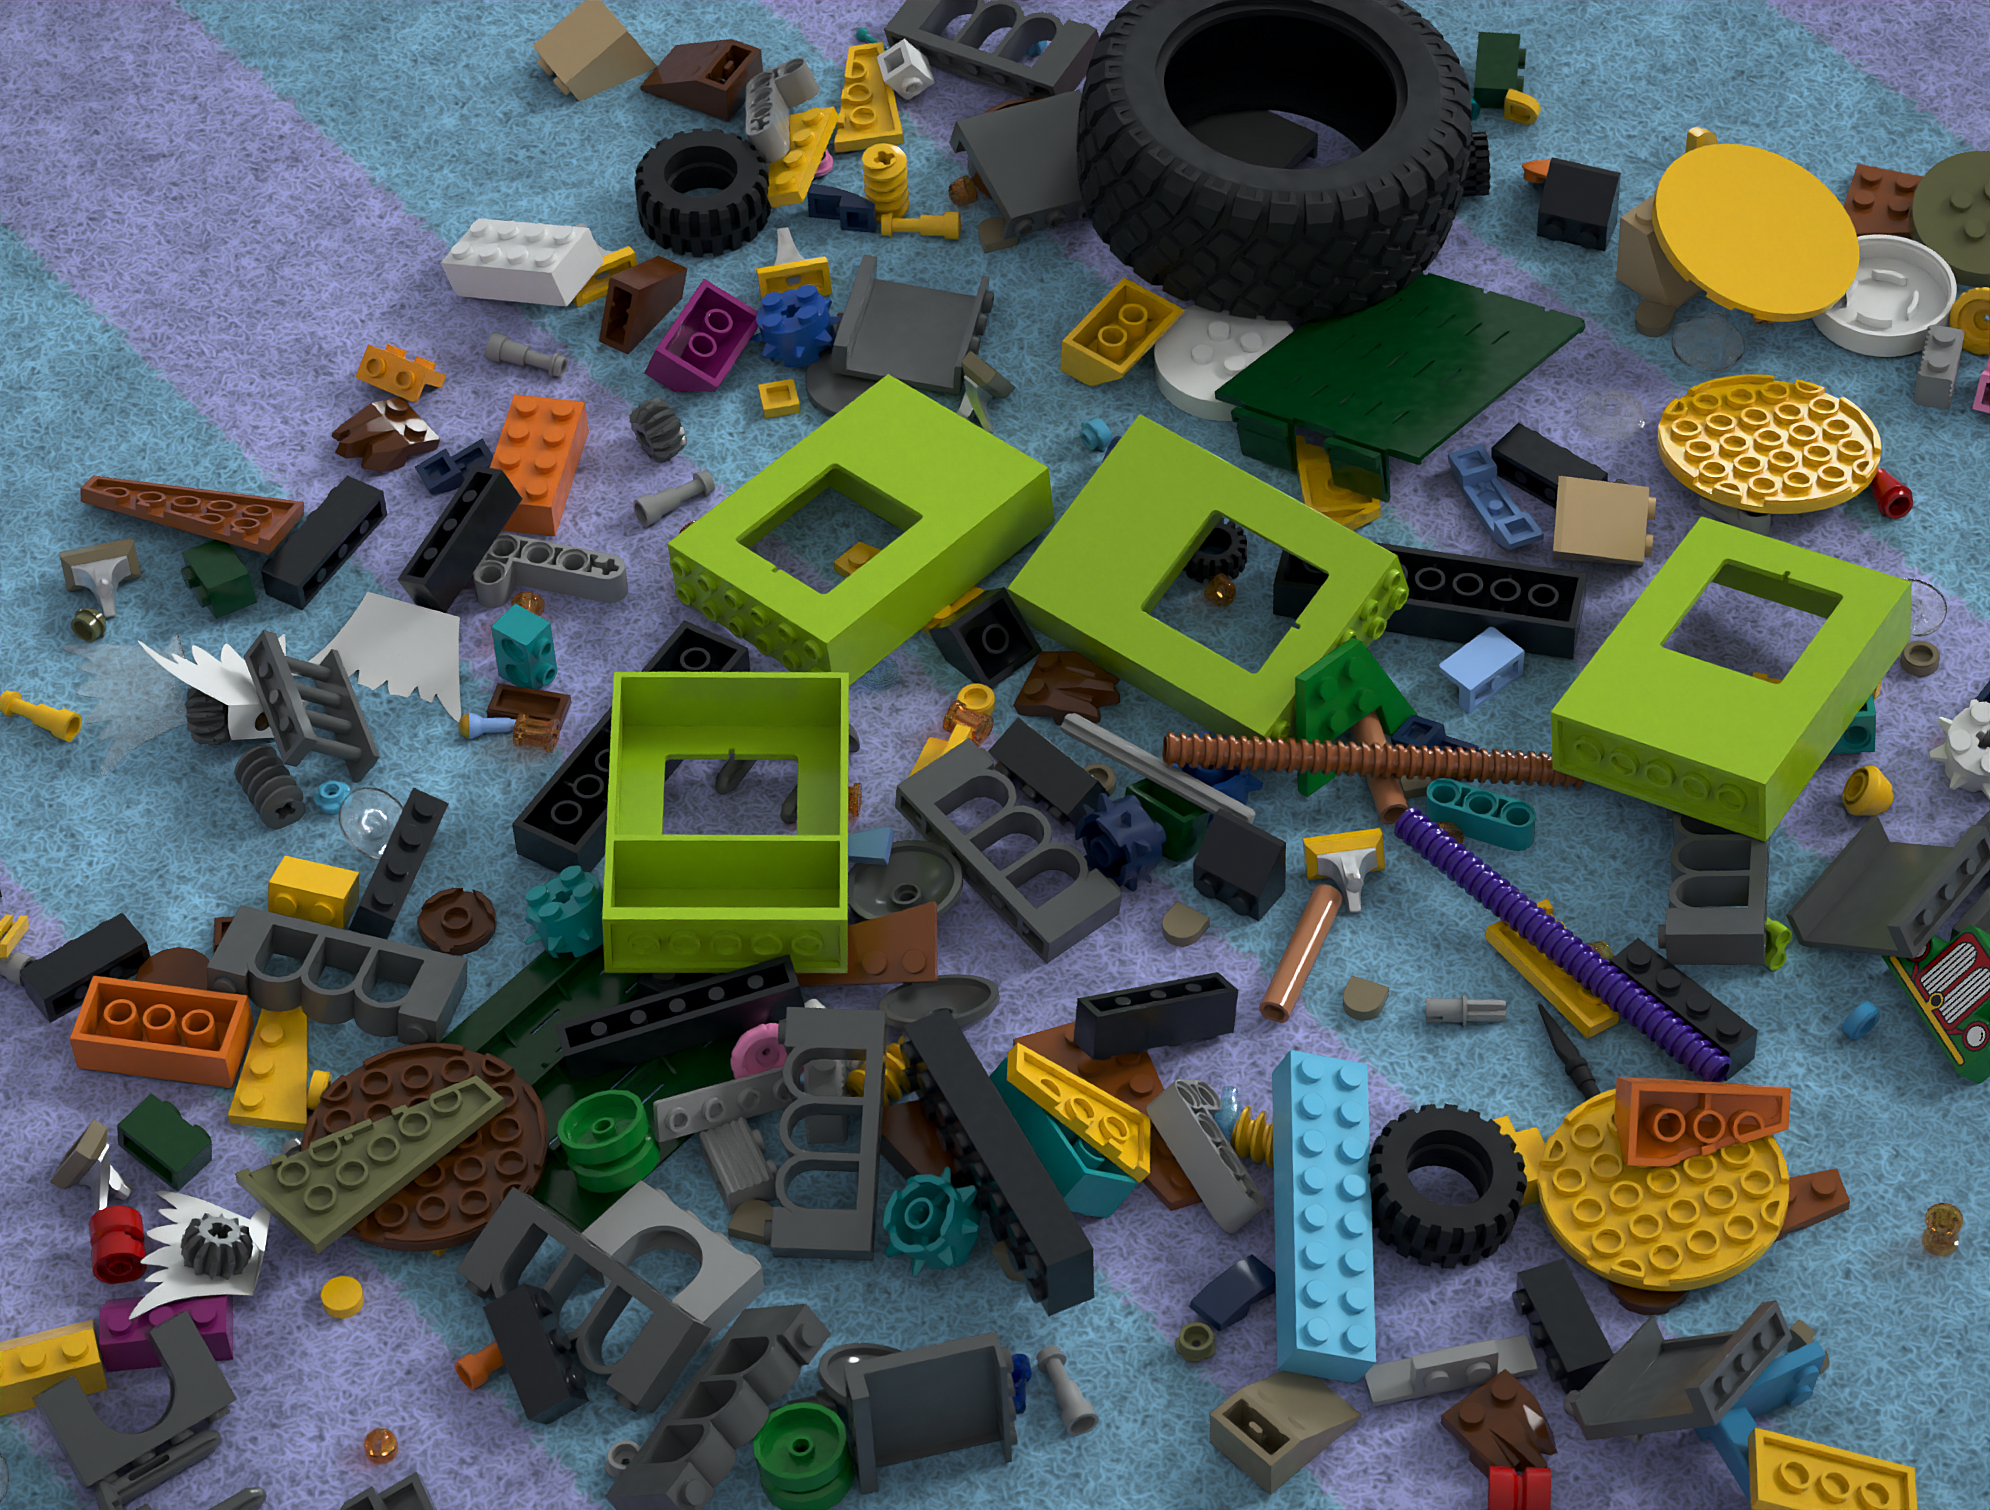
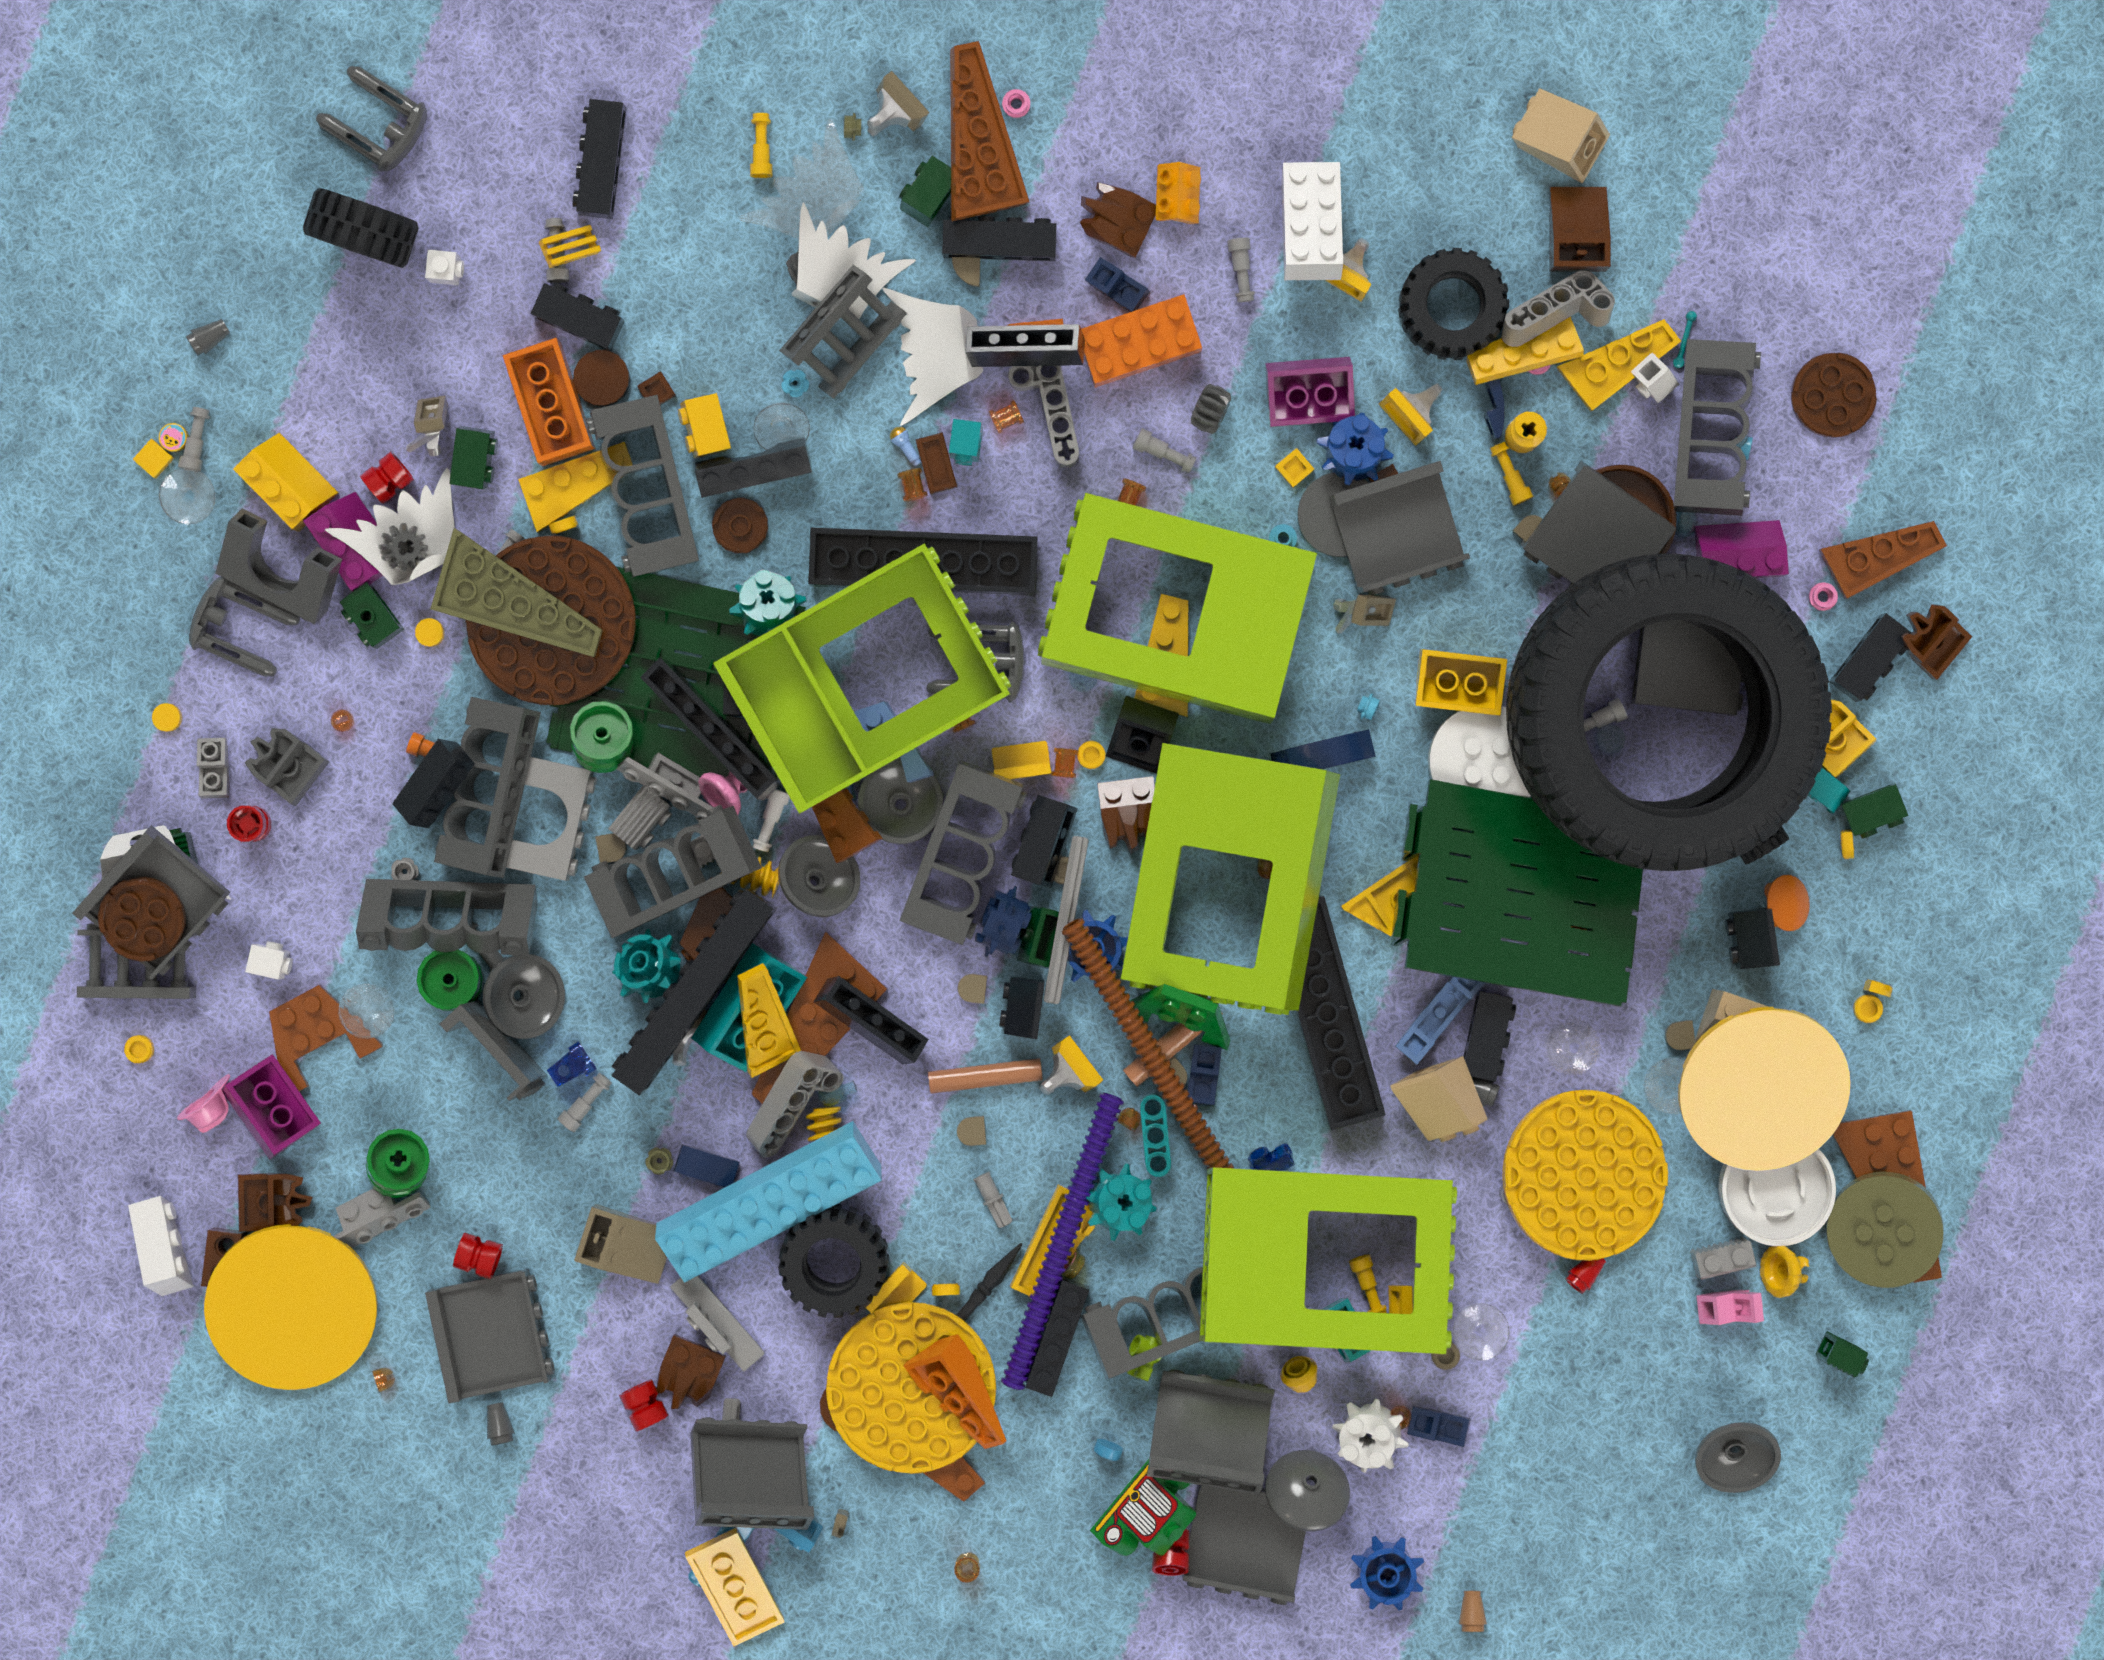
camera: 65 degrees right, 40 degrees up
(187, 472) = (1012, 95): none -> bright pink plate
(270, 787) = (774, 340): dark grey piece -> none
(273, 1343) = (371, 616): none -> dark green brick
(333, 588) = (967, 269): none -> dark tan tile
(639, 301) = (1330, 322): reddish brown slope -> none
(1483, 668) = (1281, 1076): light blue panel -> none
(1547, 867) = (1135, 1197): none -> teal brick
(1553, 1102) = (945, 1289): none -> yellow tile
(1561, 1324) = (778, 1374): black brick -> none

